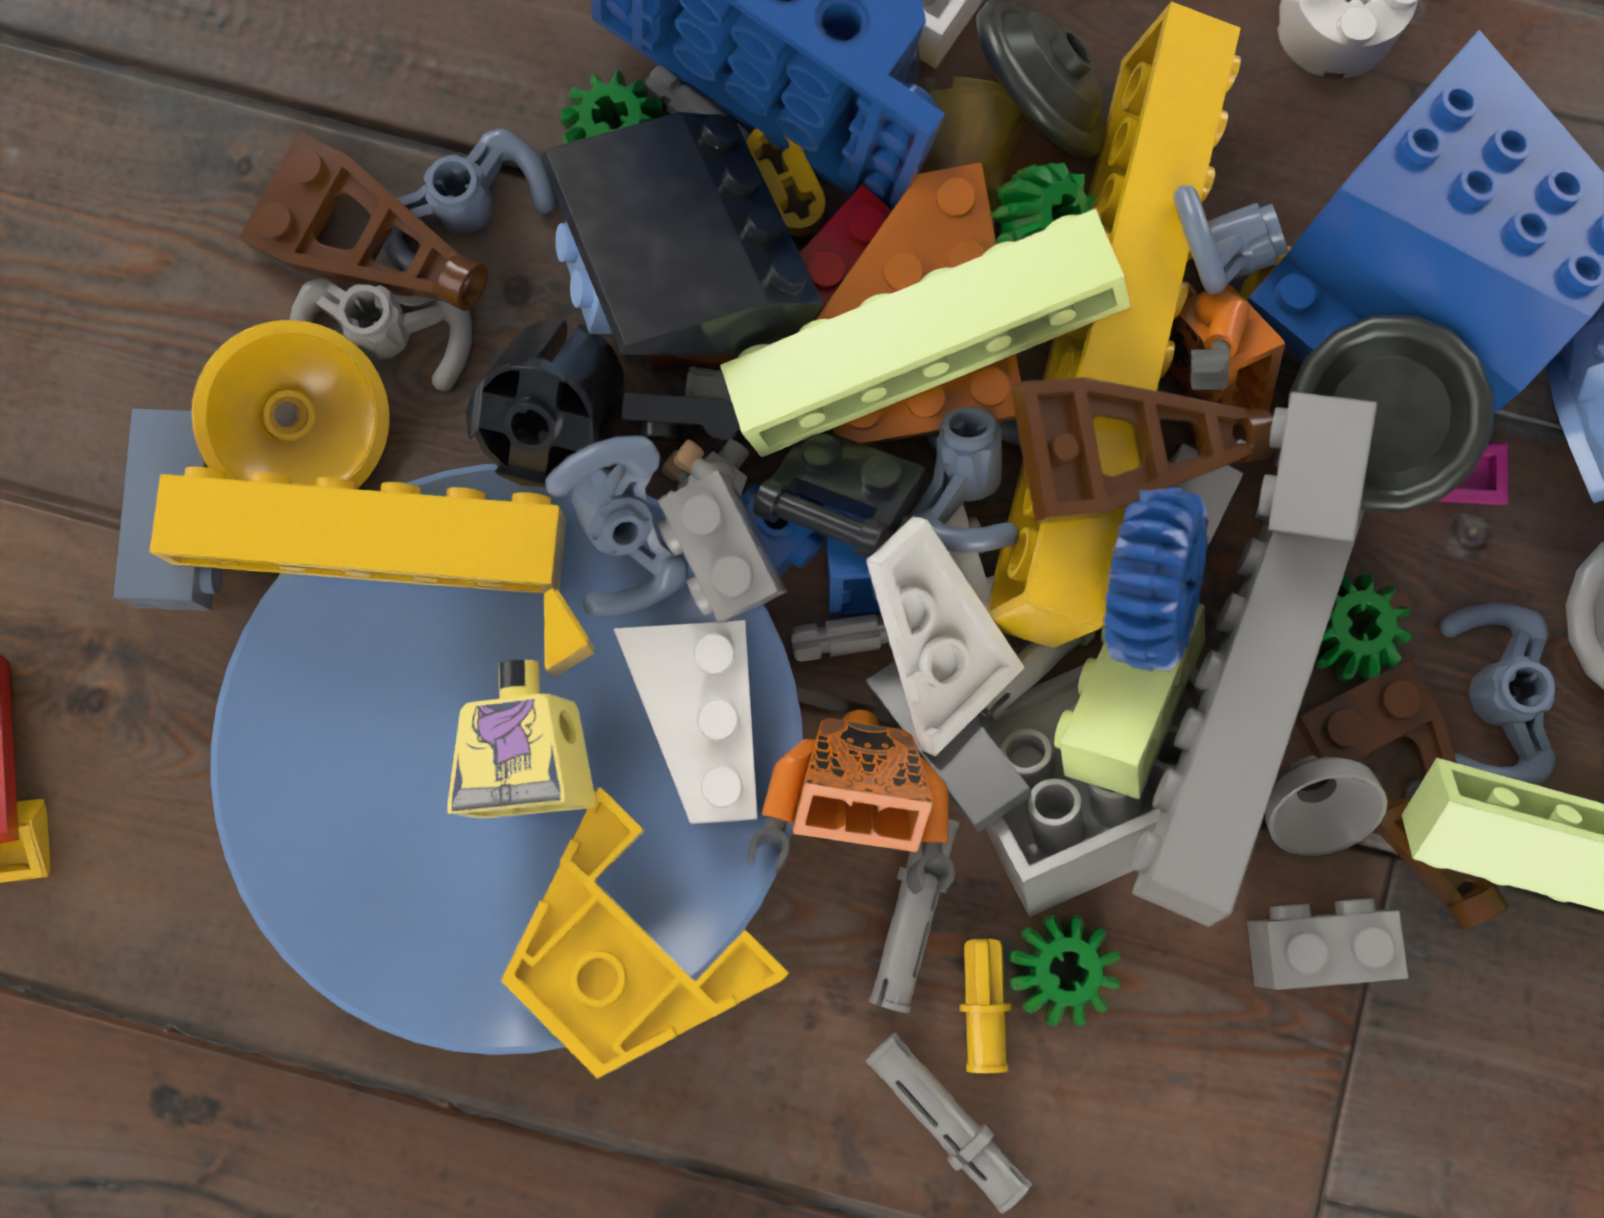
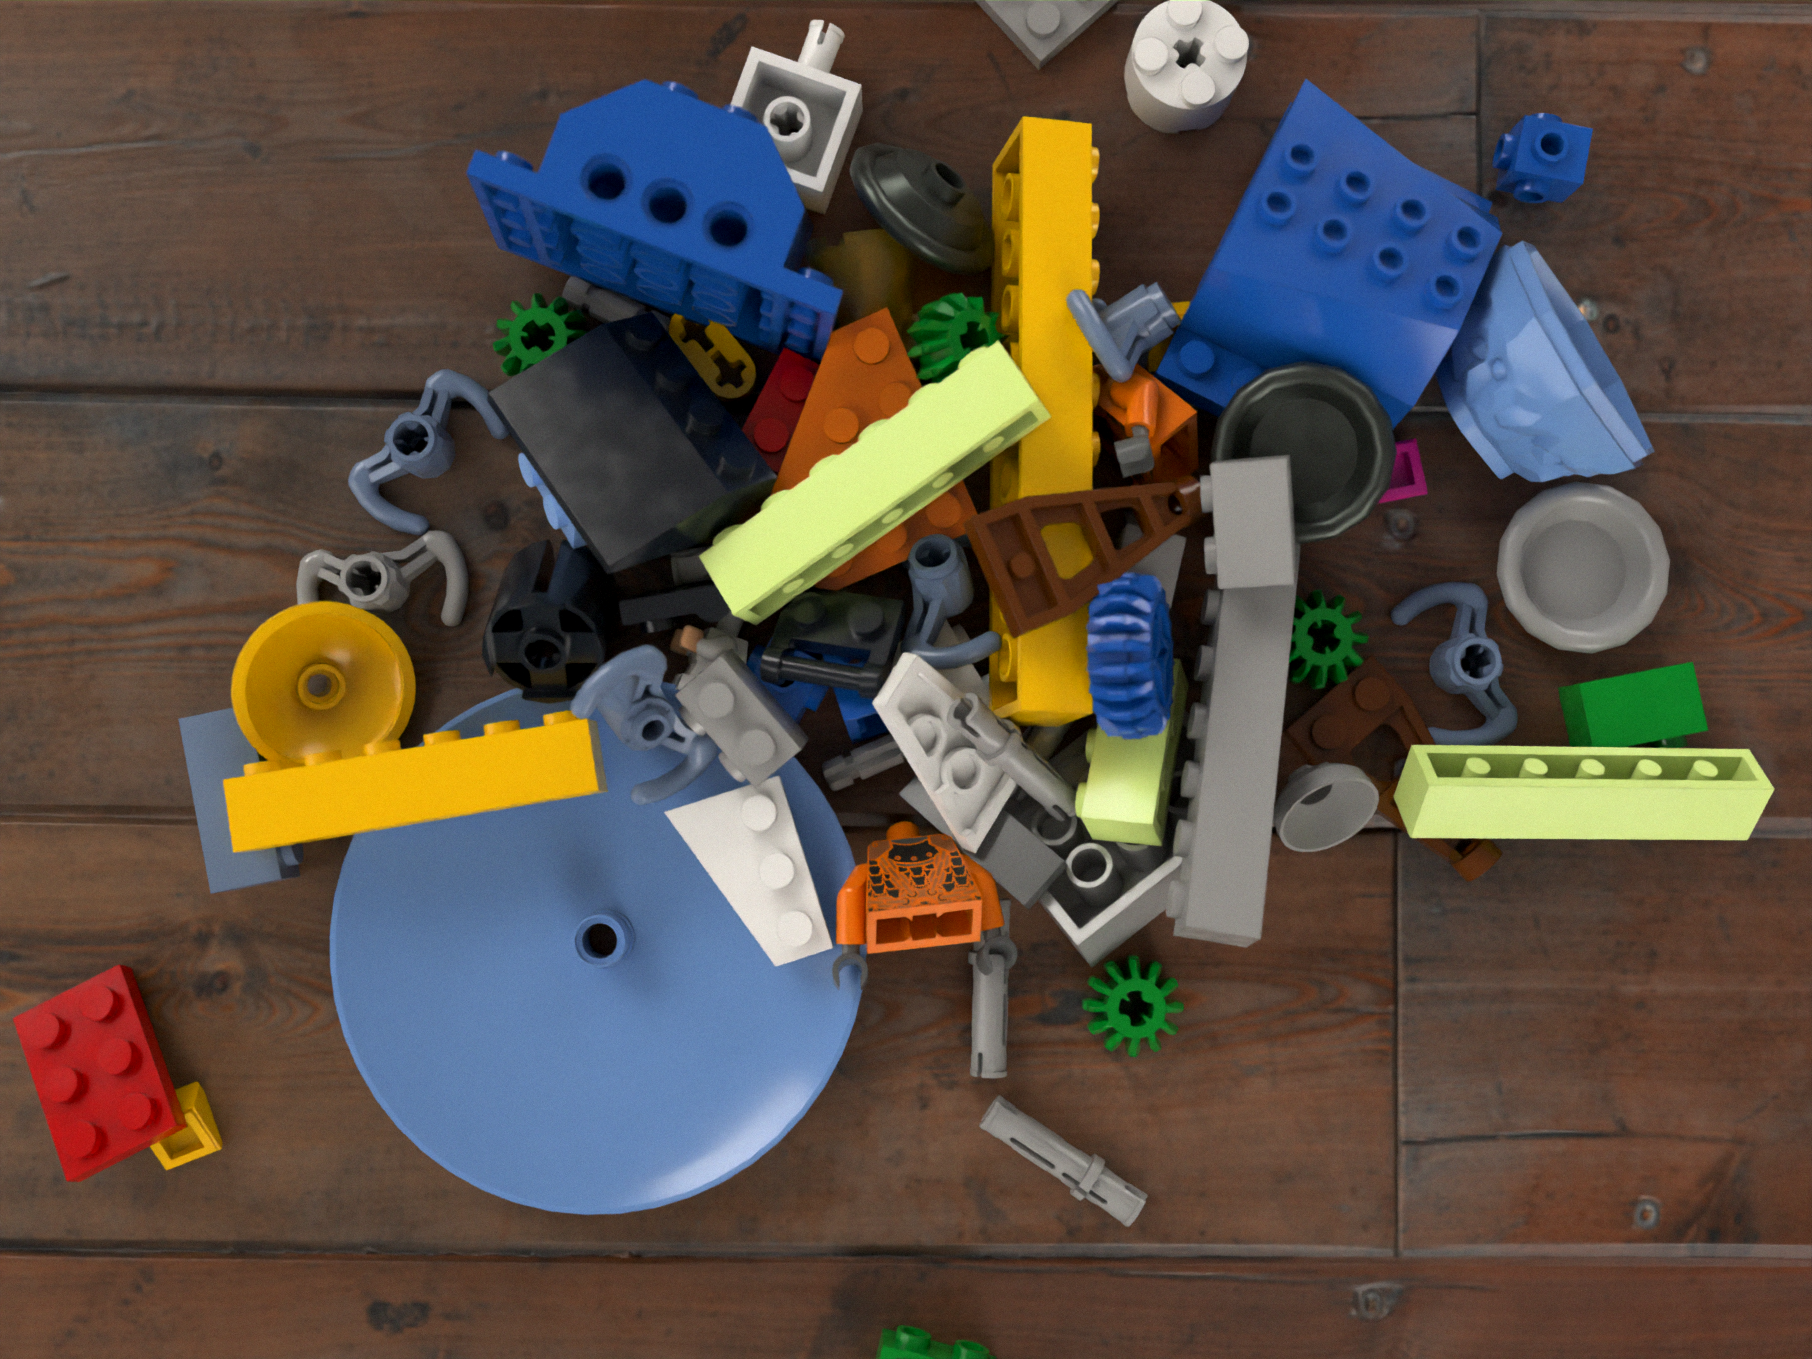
camera: 20 degrees left, 5 degrees up
(304, 197) = (277, 489): reddish brown plate -> none
(519, 751) = (610, 943): light yellow torso -> none
(564, 636) = (621, 828): yellow slope -> none
(601, 975) = (733, 1118): yellow wing -> none
(985, 1006) = (1071, 1053): yellow axle -> none
(994, 645) = (1003, 747): none -> light grey pin
(1327, 948) = (1353, 929): light grey brick -> none

